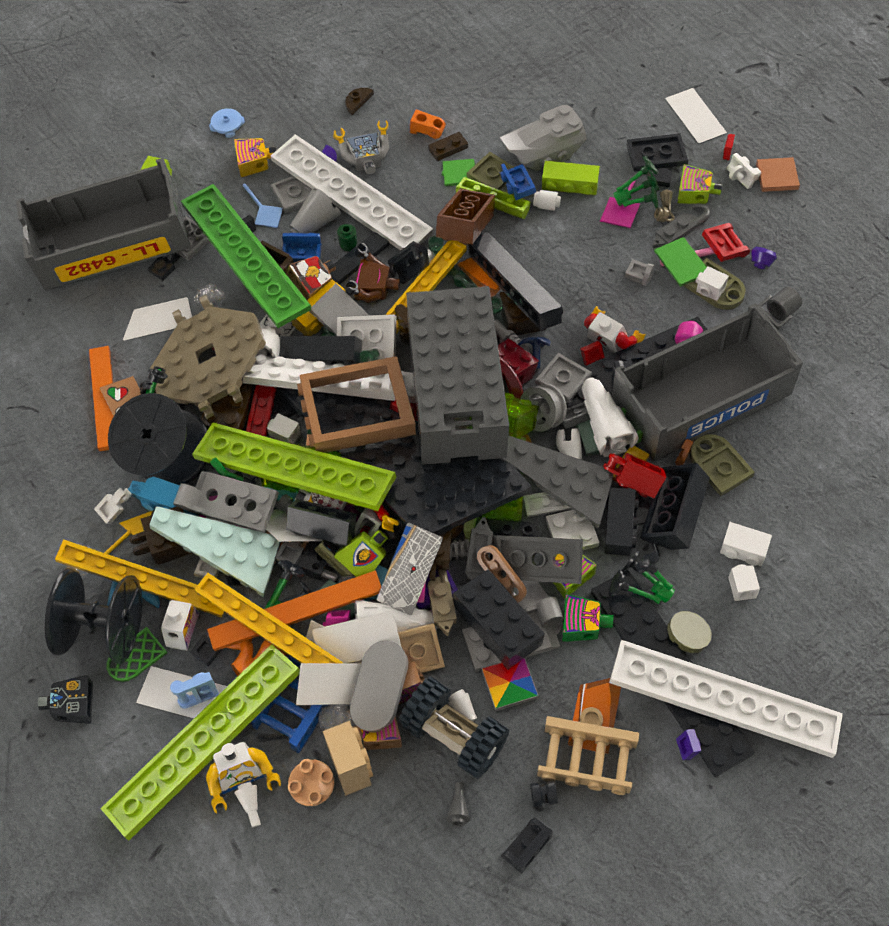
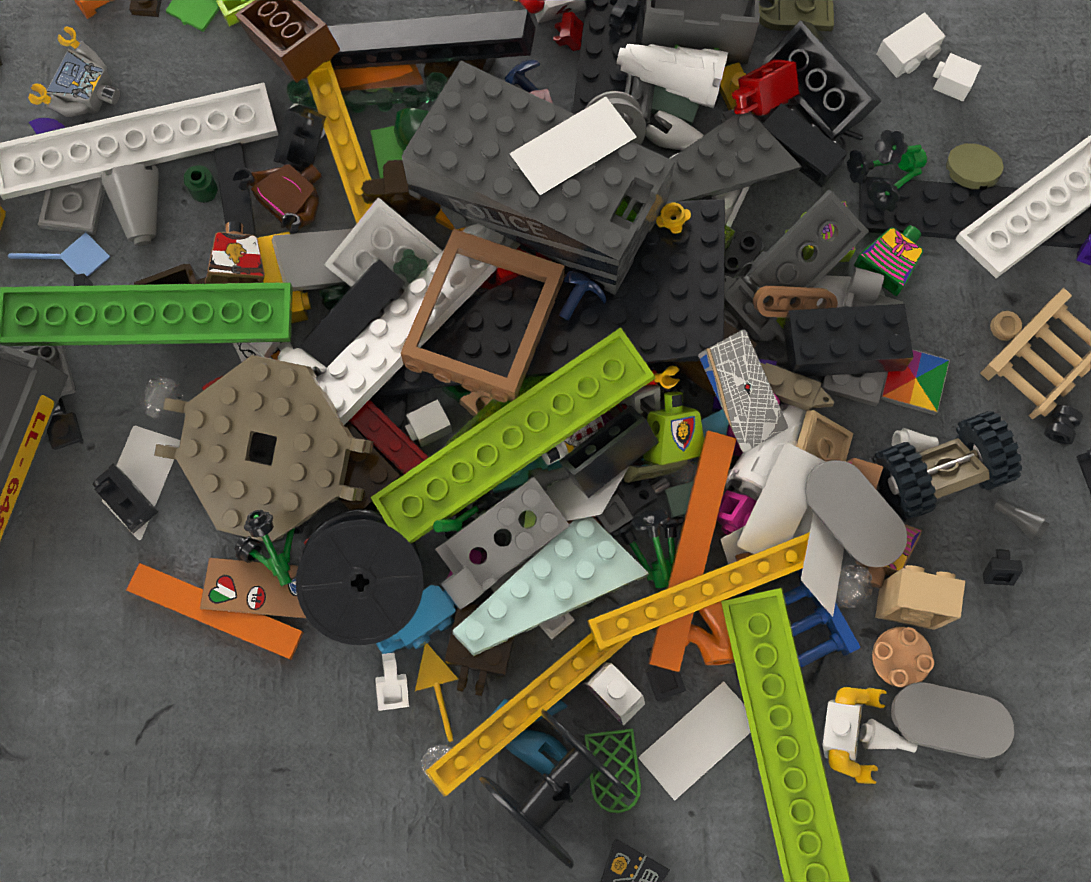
camera: 60 degrees left, 15 degrees up
(141, 317) = (124, 498): none -> black hinge
(201, 687) = (721, 713): light blue plate -> none
(287, 838) = (952, 720): none -> light grey tile
(302, 245) = (173, 244): blue bracket -> none
(411, 810) = (1002, 569): none -> black tile
(413, 441) = (582, 285): none -> dark blue plant
(476, 367) = (572, 145): none -> white sticker
(494, 463) = (673, 210): none -> yellow plate
(564, 375) = (582, 78): light grey tile -> none
(572, 526) = (776, 202): white plate -> none
(601, 696) = (985, 300): orange sticker -> none
(686, 448) = (764, 31): dark orange tile -> none

